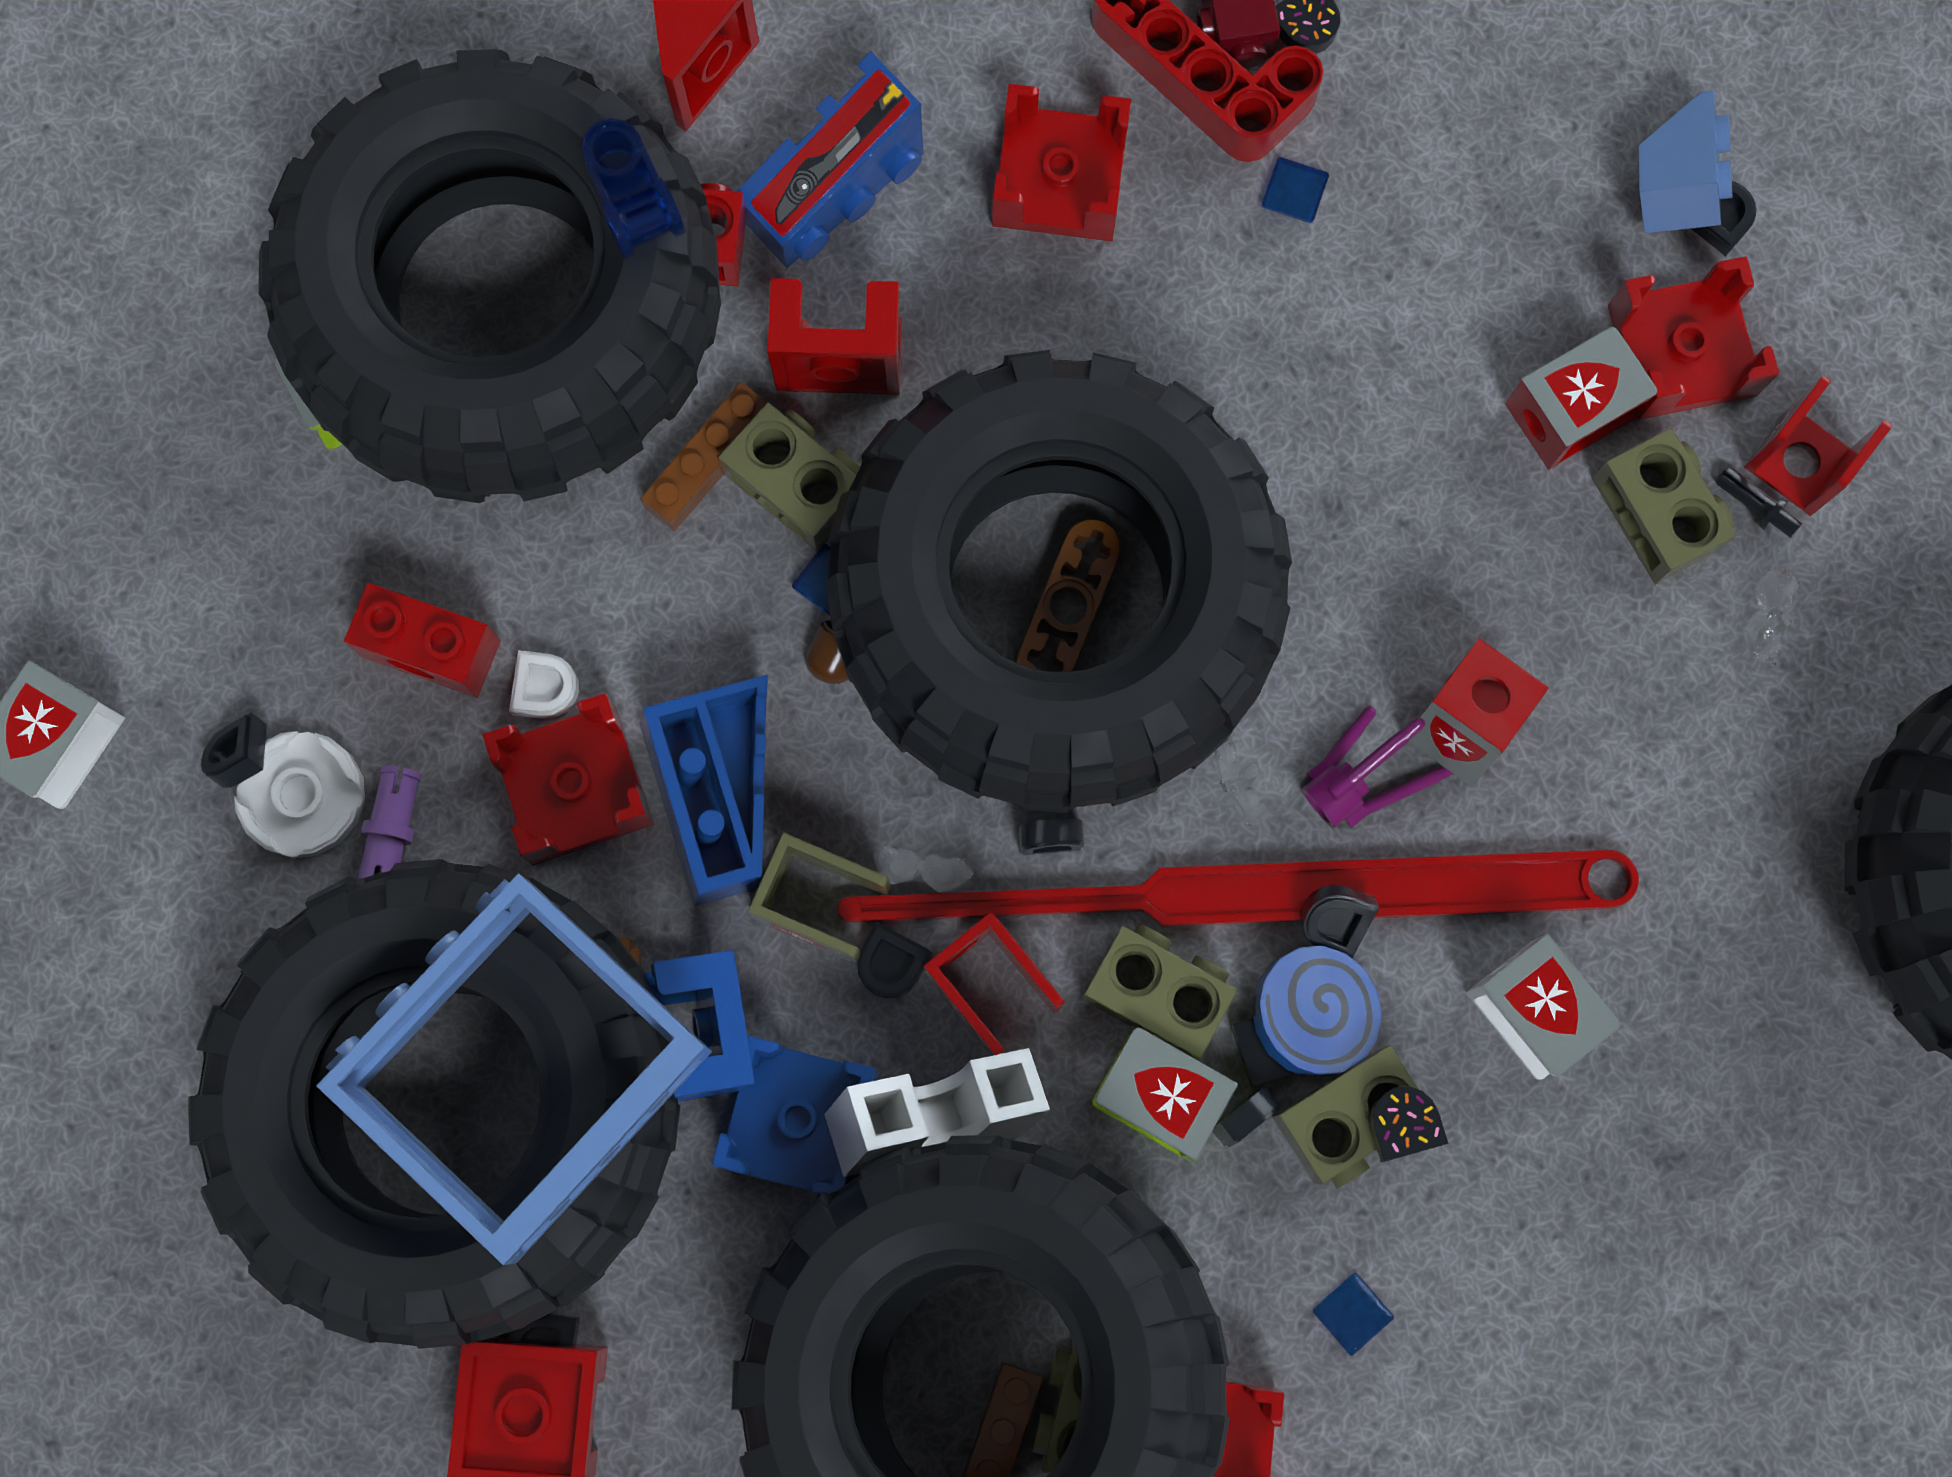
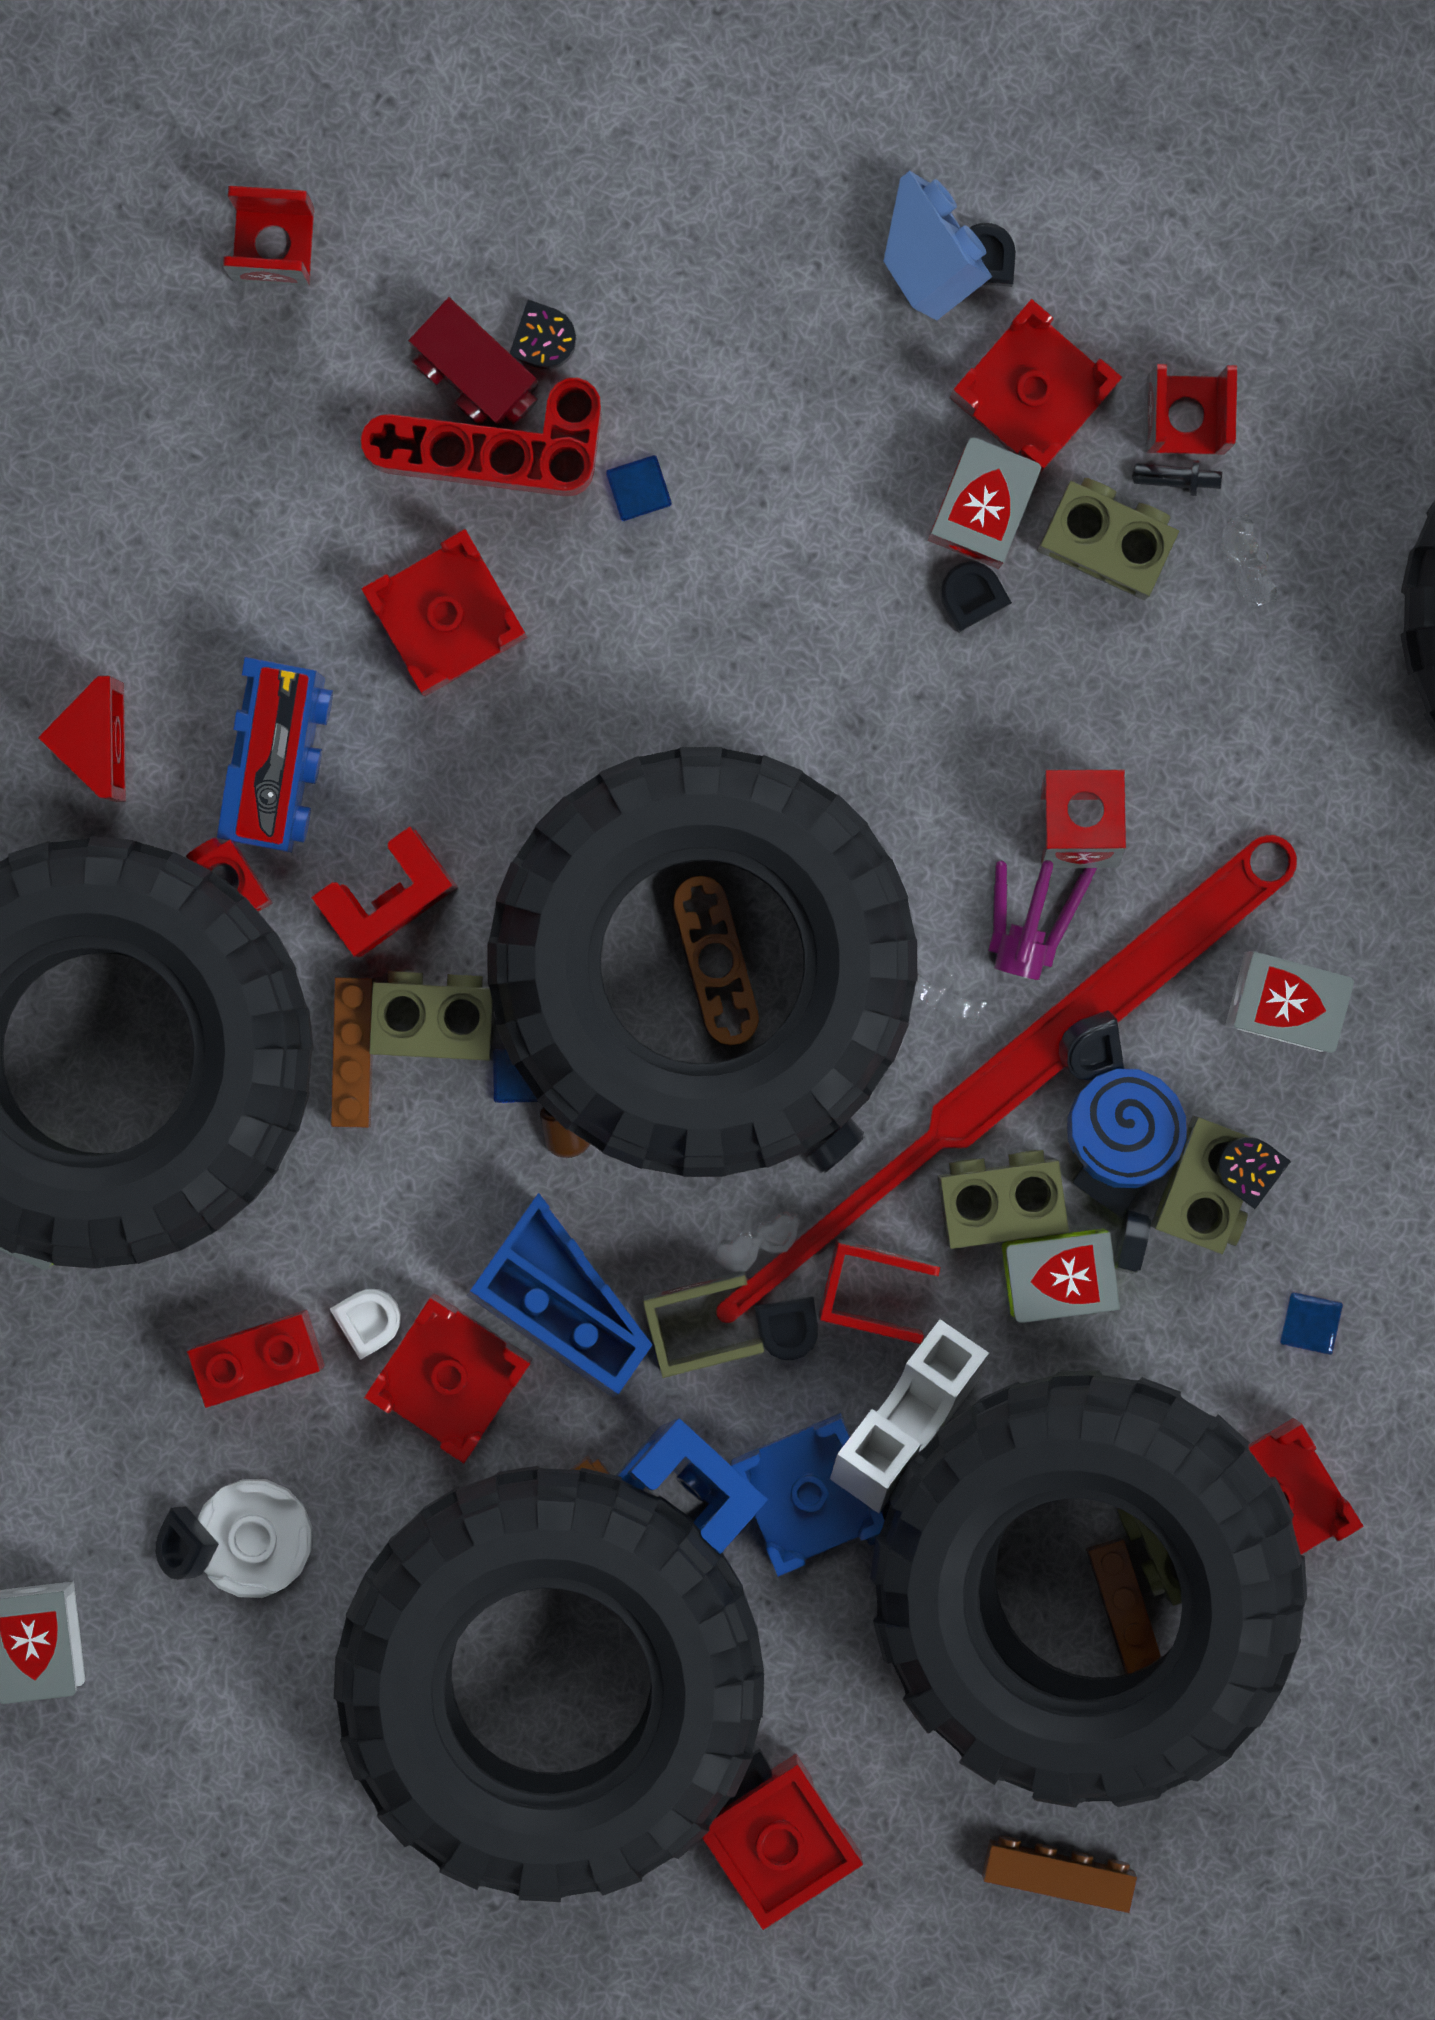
camera: 35 degrees left, 10 degrees up
(390, 820) = (342, 1515): medium lavender pin -> none
(411, 1007) = (499, 1641): medium blue window -> none
(632, 196) = (181, 937): clear blue piece -> none
(1512, 471) = (972, 594): none -> black tile

